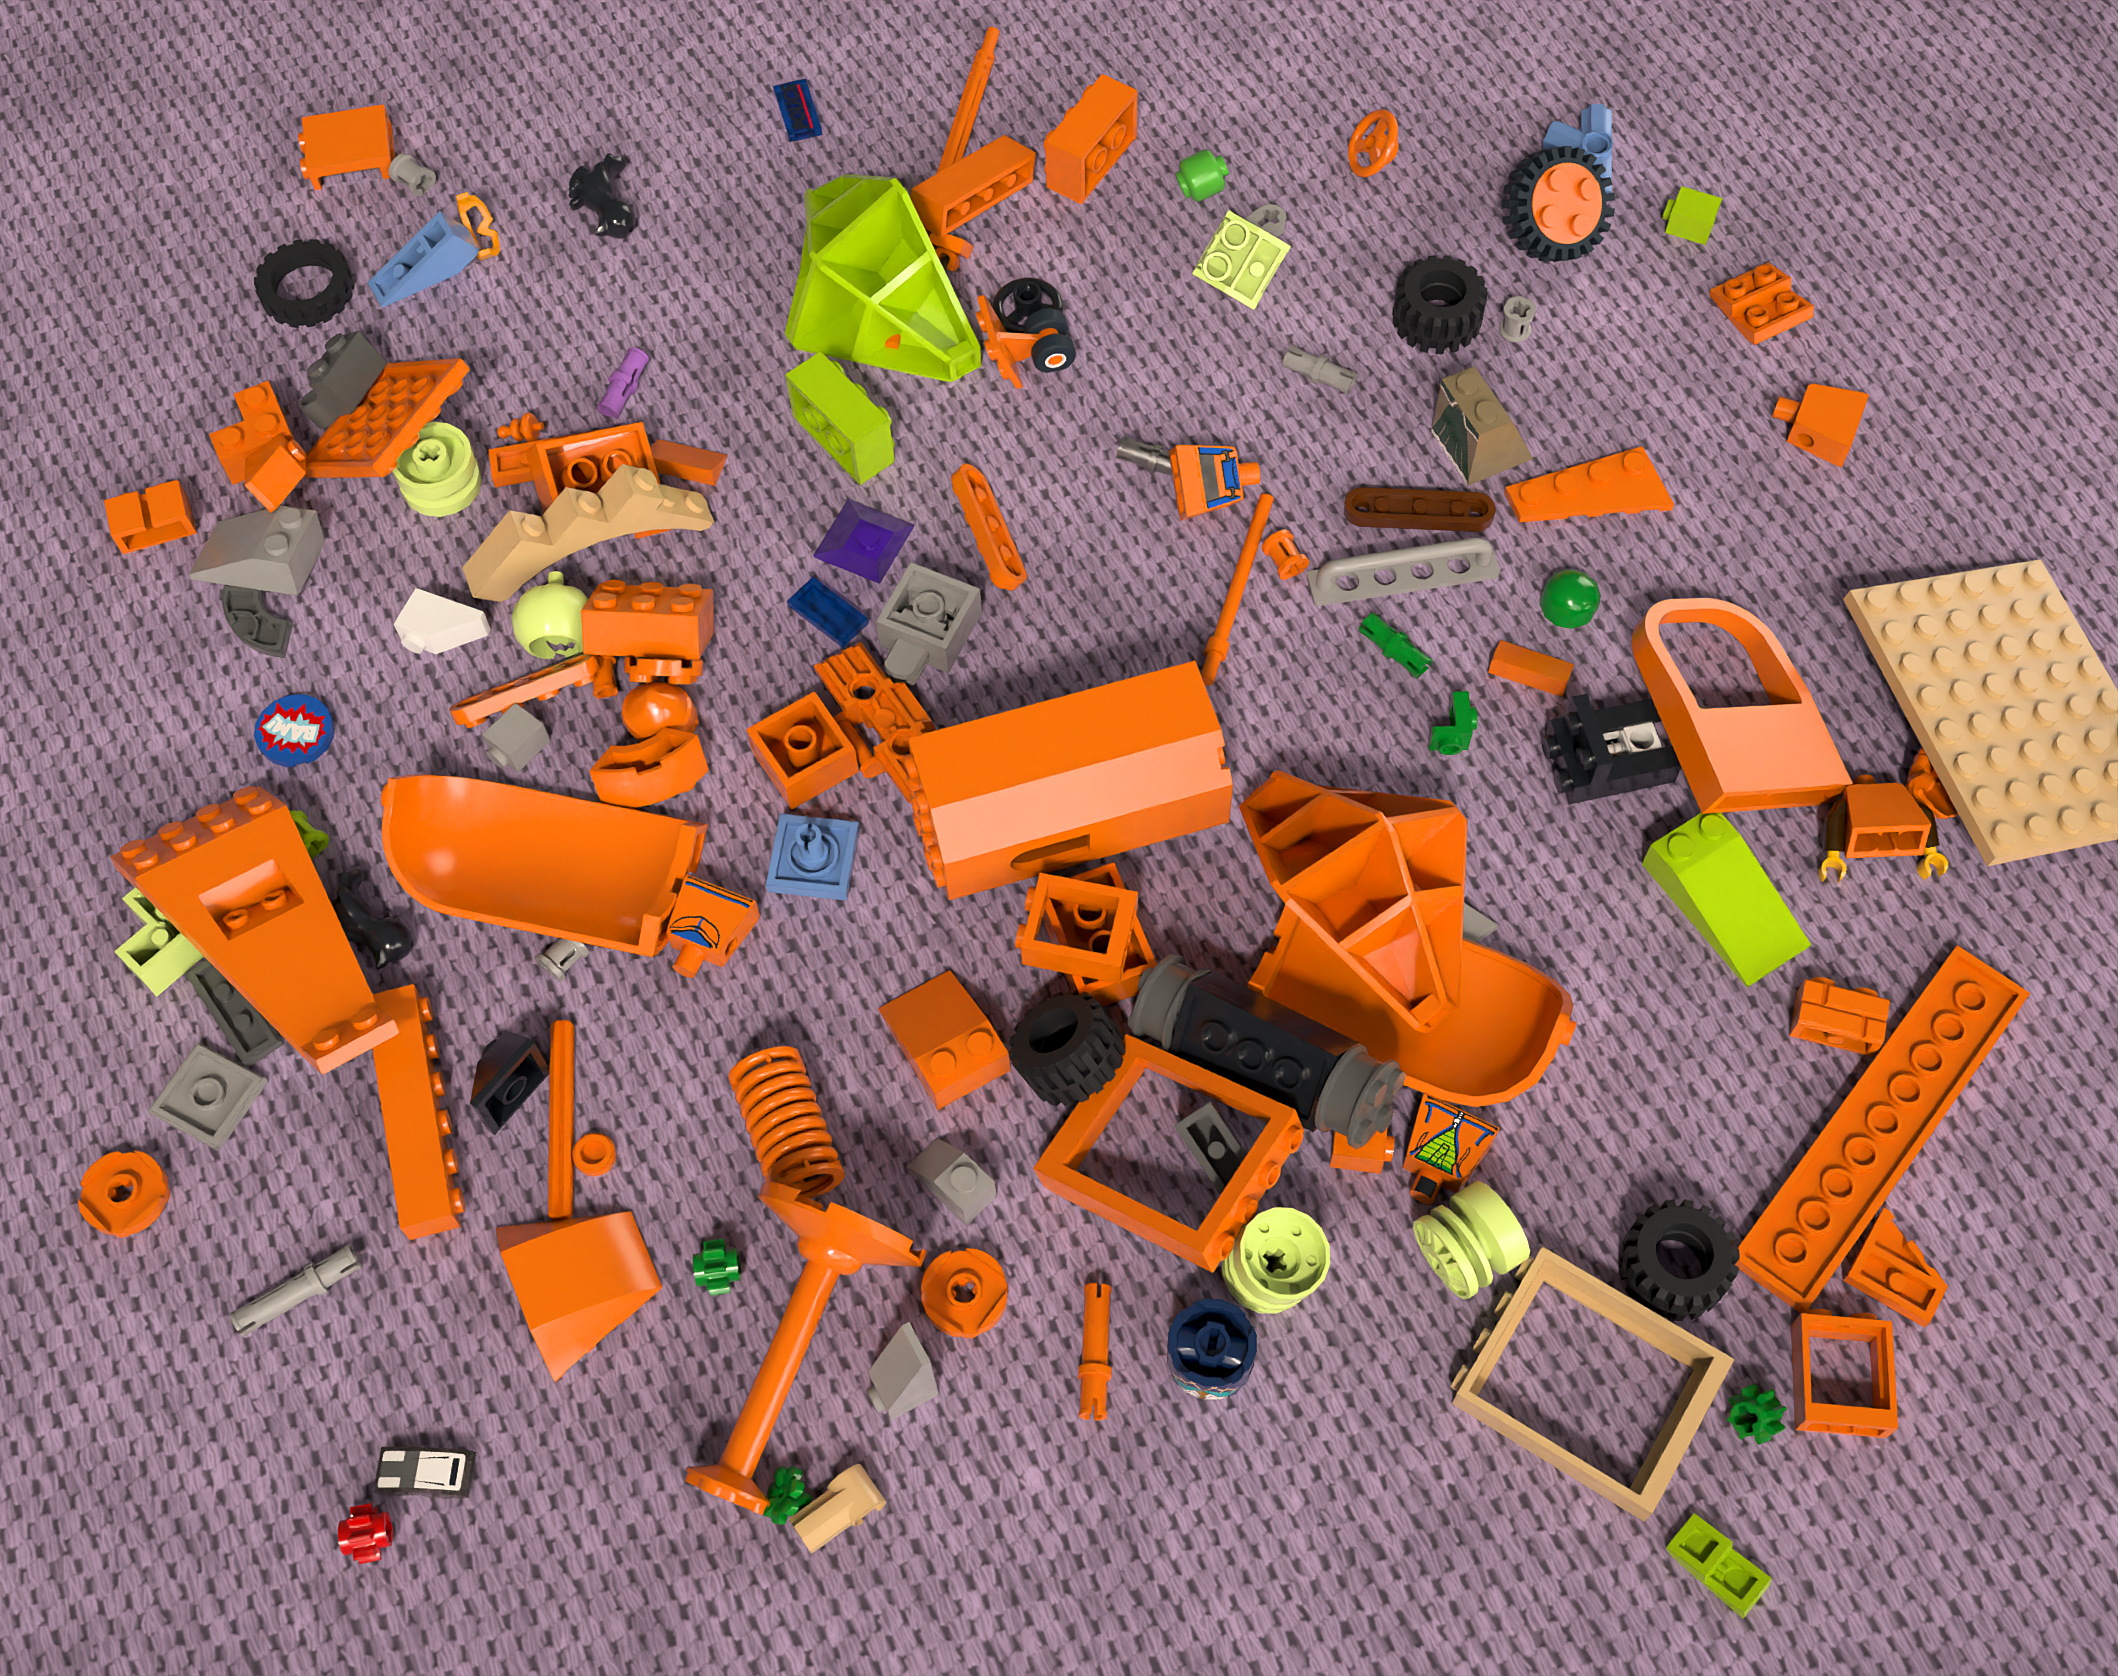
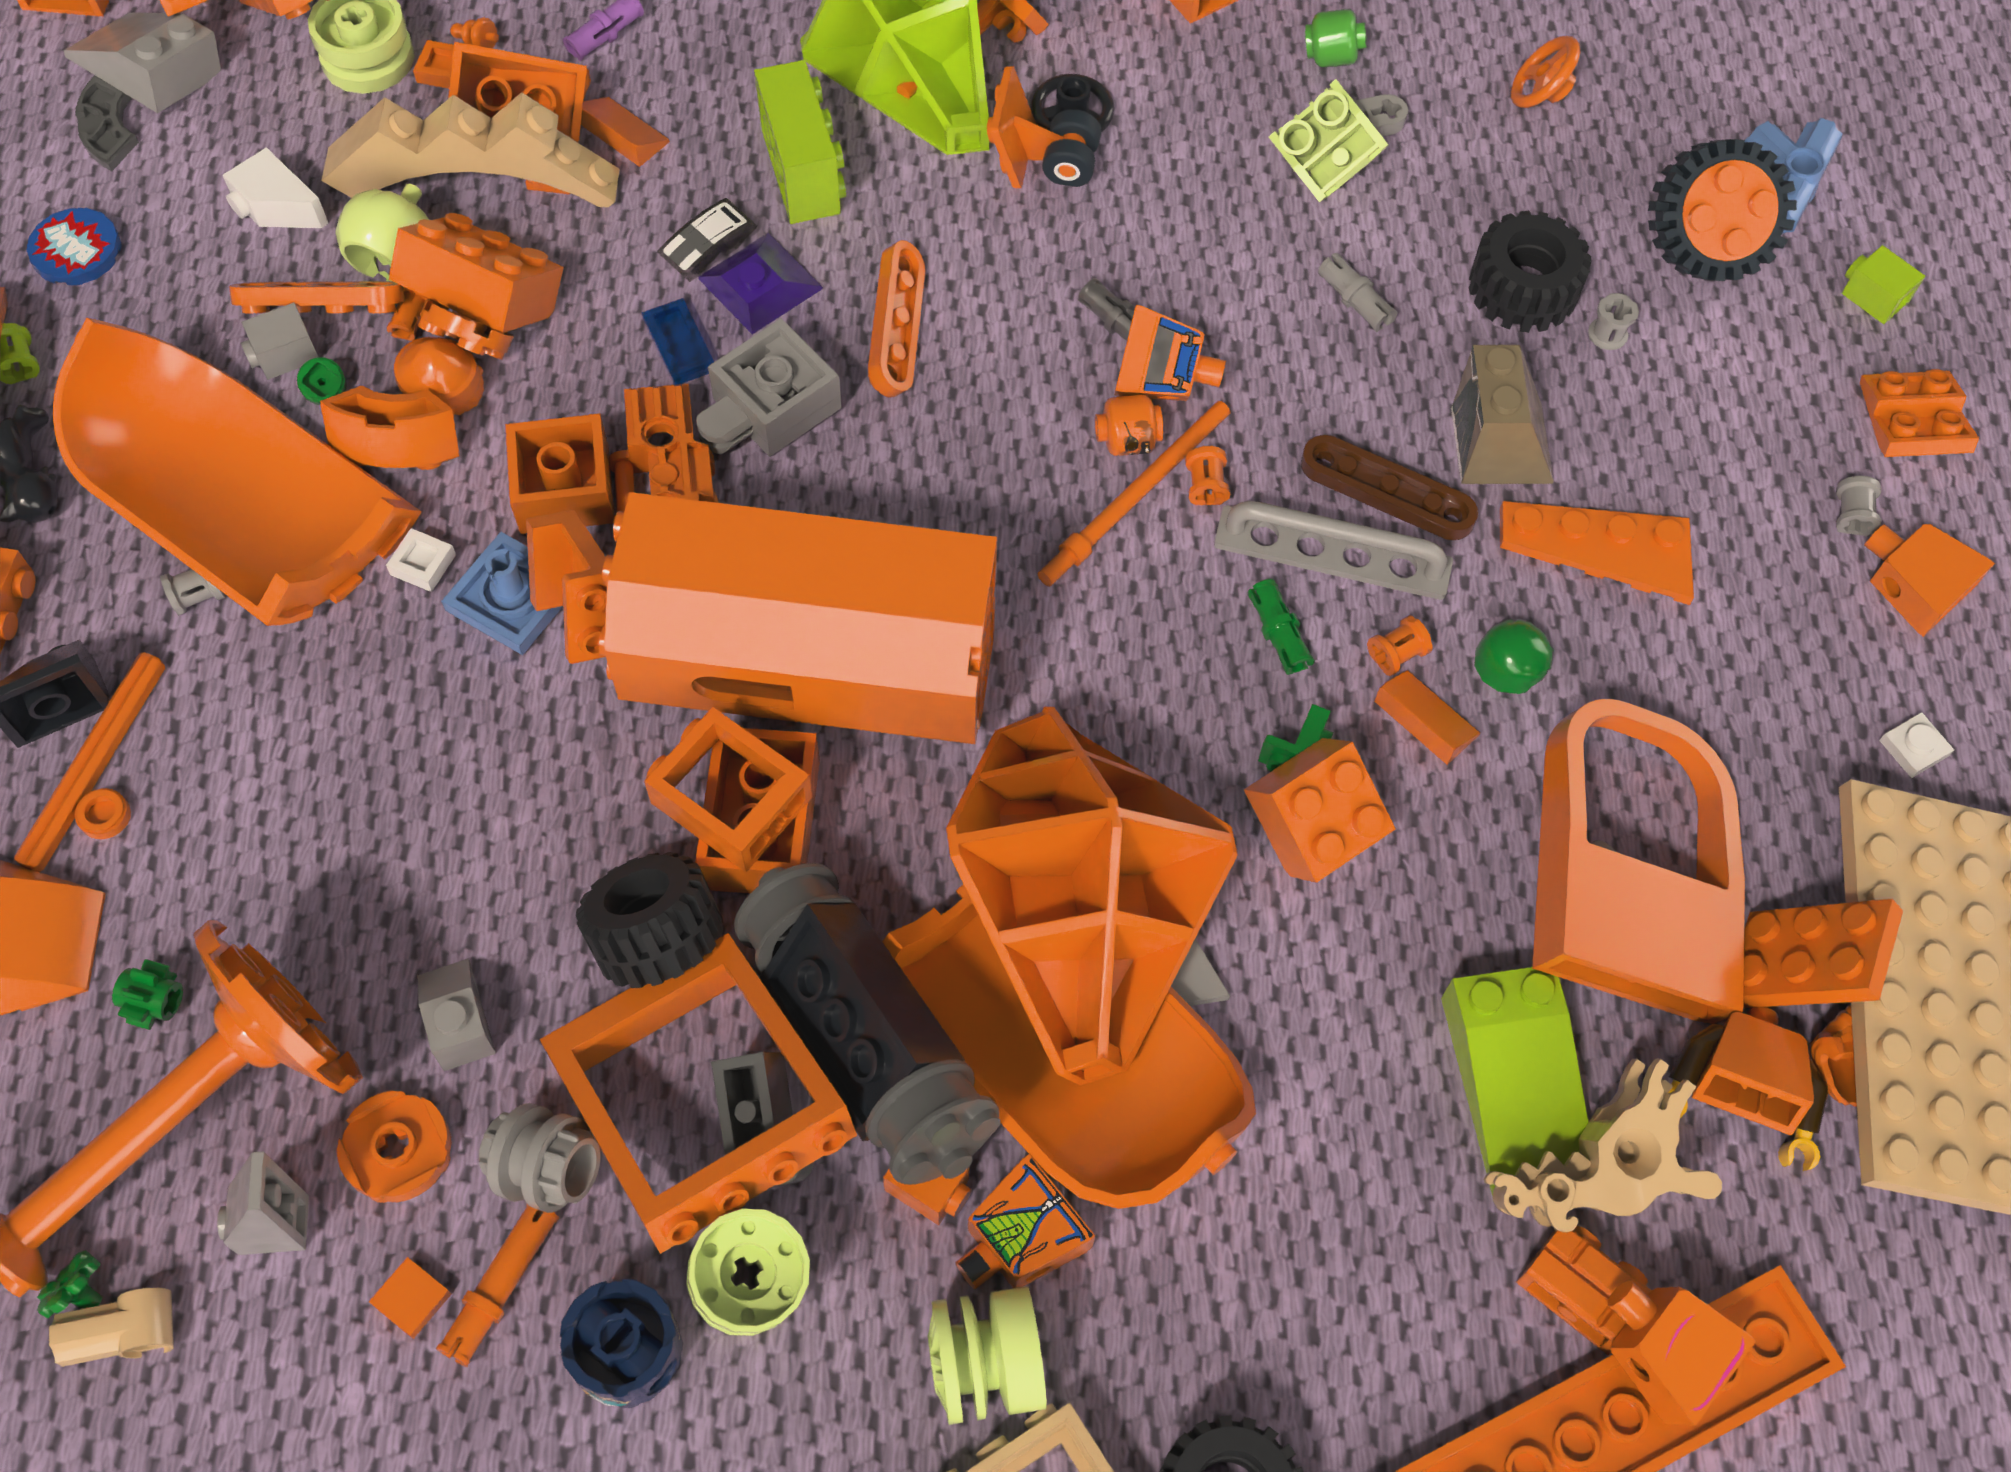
camera: 20 degrees right, 0 degrees up
(566, 756) = (320, 379): none -> green tile
(708, 924) = (357, 618): orange torso -> none
(728, 861) = (421, 560): none -> white plate
(766, 1124) = (277, 888): orange piece -> none
(804, 521) = (705, 236): none -> slope
(878, 820) = (568, 573): none -> orange panel
(946, 1039) = (534, 852): orange slope -> none
(1036, 1391) = (410, 1297): none -> orange tile
(1082, 1249) = (539, 1157): none -> light grey piece
(1207, 539) = (1129, 425): none -> orange head
(1486, 616) = (1380, 646): none -> orange bush
(1498, 765) = (1320, 809): none -> orange brick
(1597, 750) = (1473, 874): black brick -> none
(1754, 389) = (1858, 505): none -> light grey bush
(1823, 918) = (1622, 1158): none -> tan animal
(1874, 547) = (1916, 745): none -> white plate
(1886, 720) = (1819, 953): none -> orange plate
(1921, 1028) = (1676, 1349): none -> orange torso

